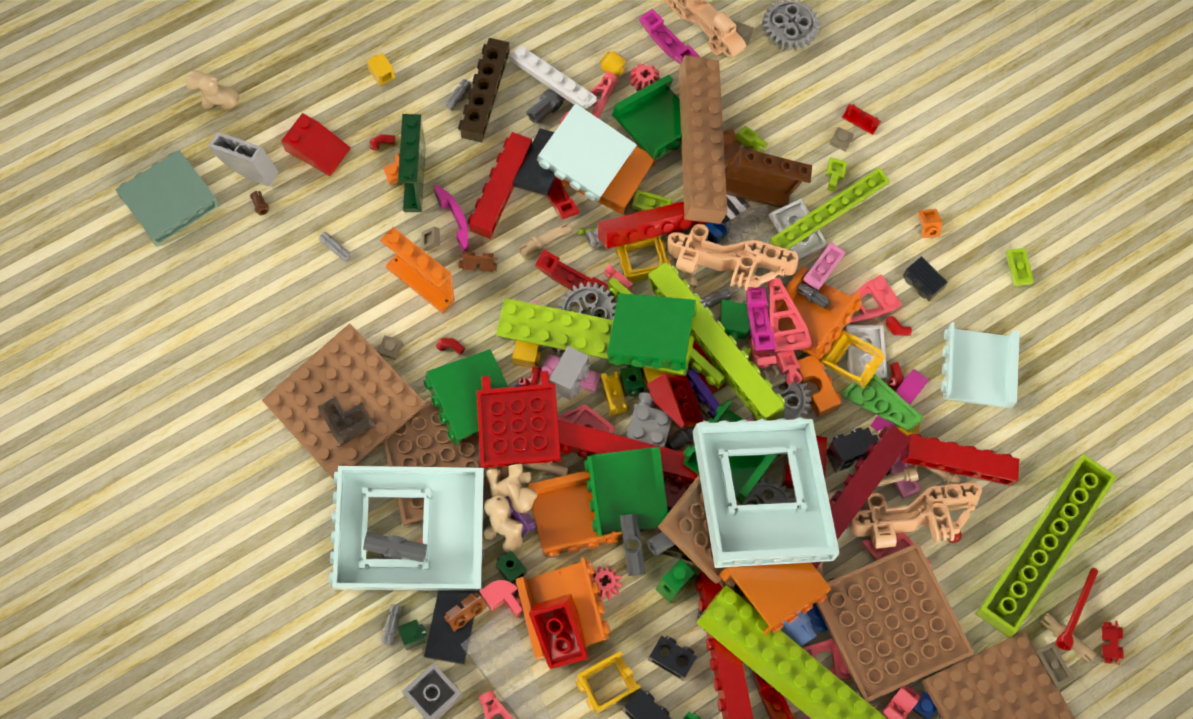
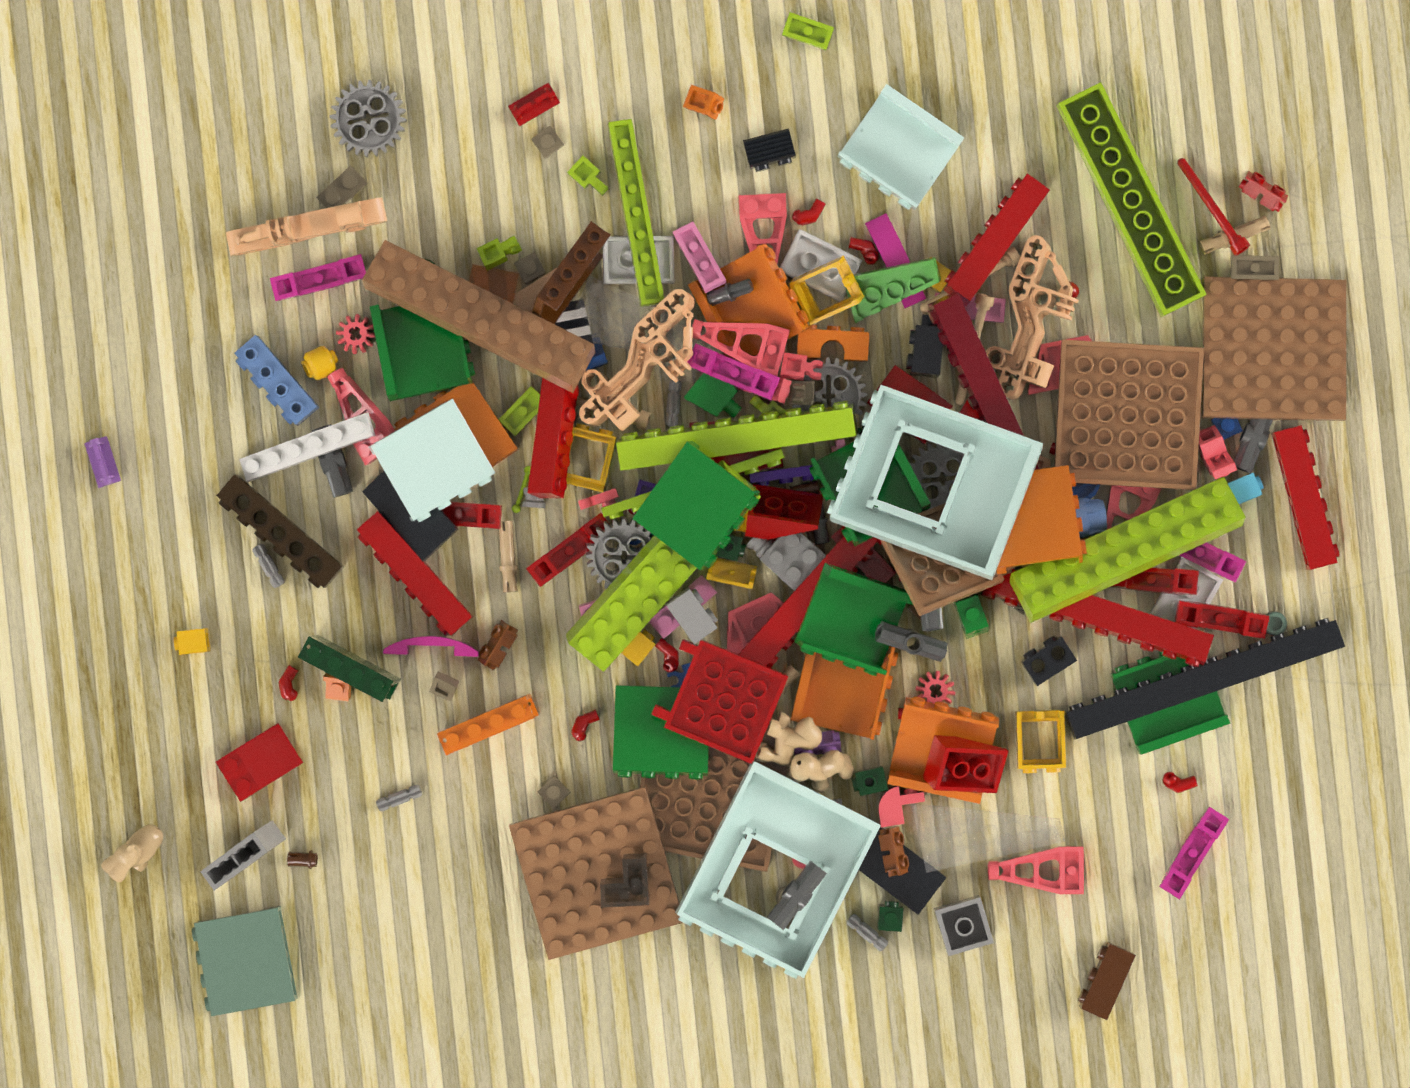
camera: 55 degrees left, 20 degrees up
(586, 44) = (276, 380): none -> medium blue brick

